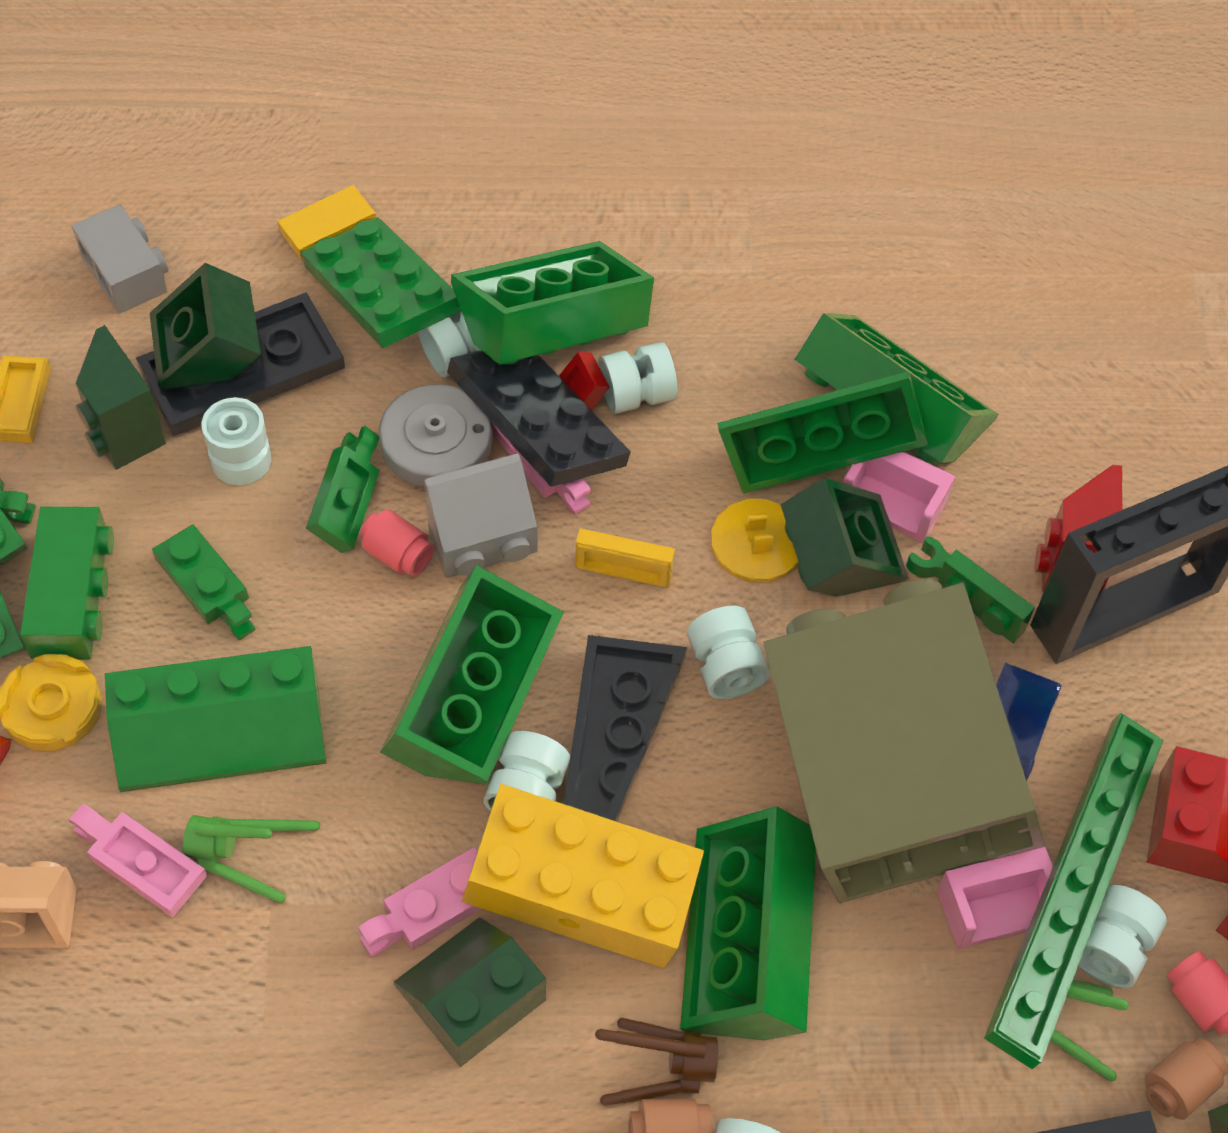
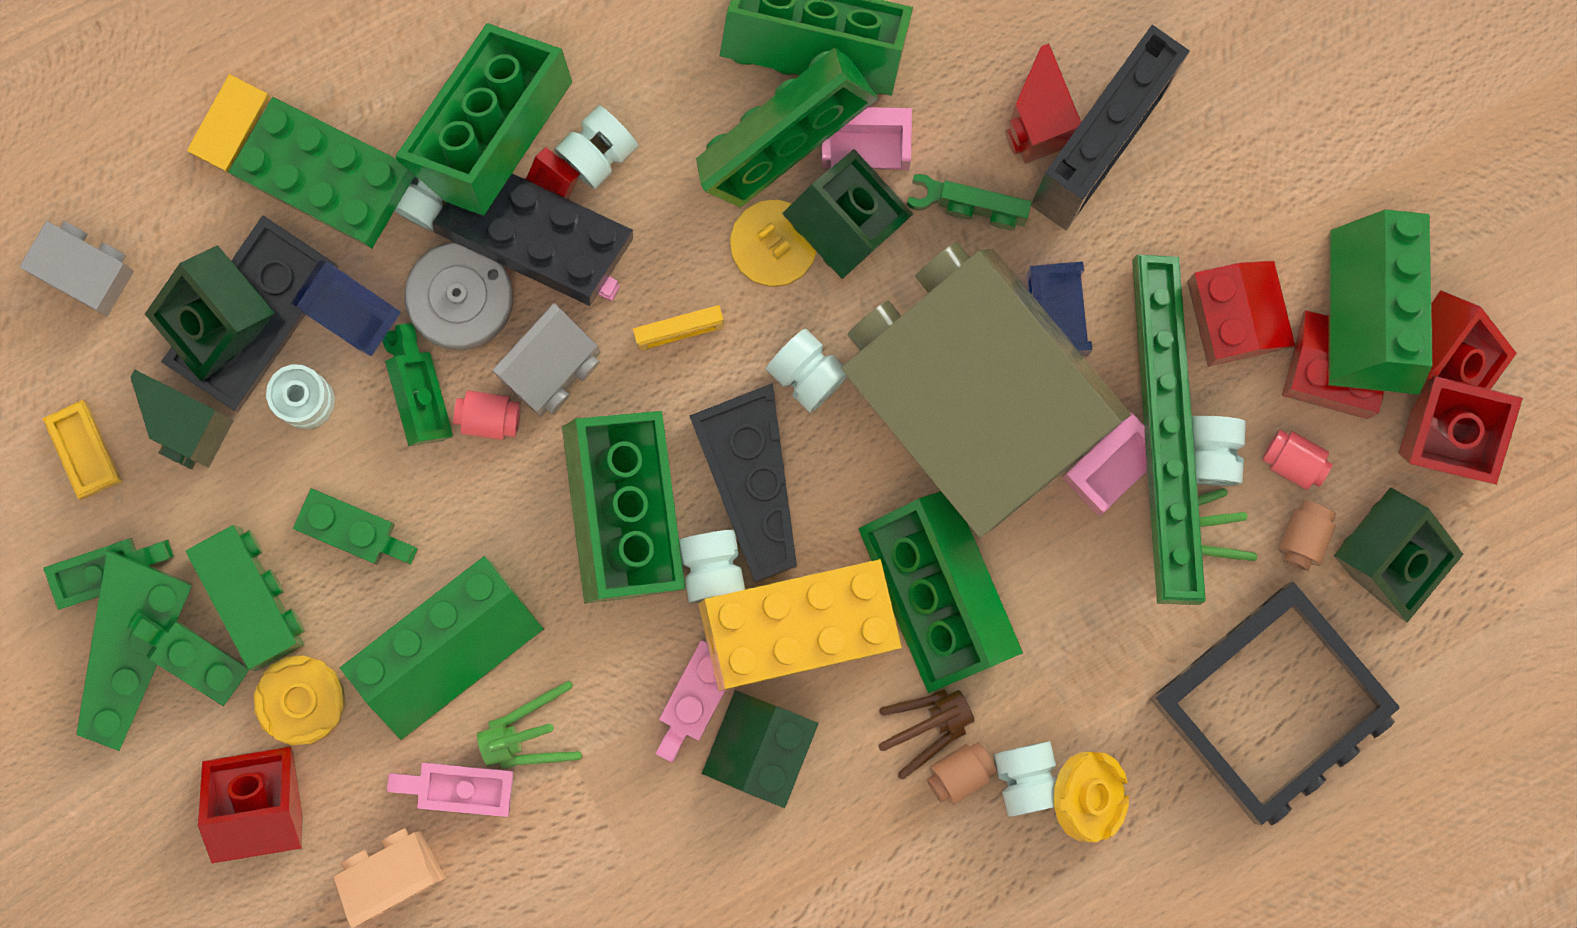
camera: 25 degrees left, 25 degrees up
(326, 389) = (345, 307): none -> clear blue panel

